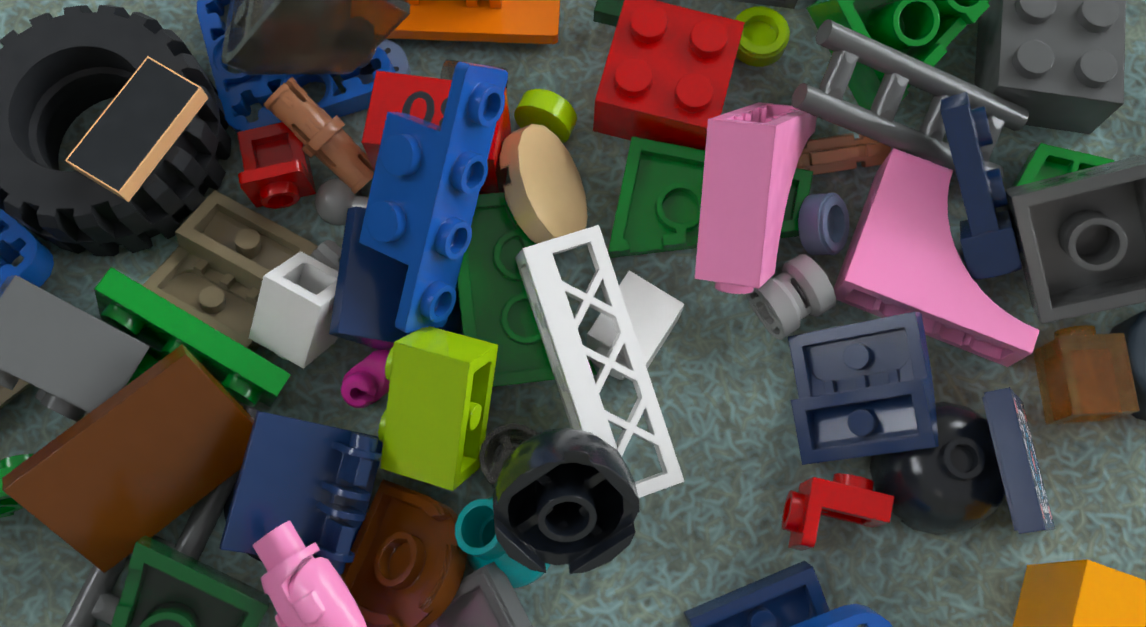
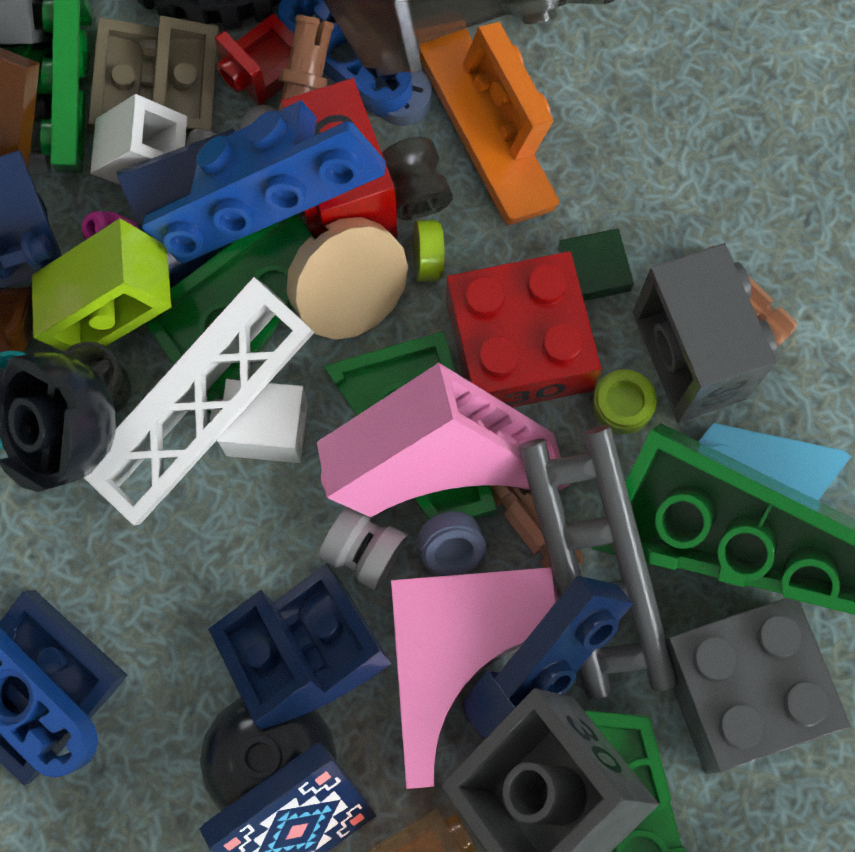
camera: 65 degrees right, 0 degrees up
(844, 498) = (190, 680): red bracket -> none

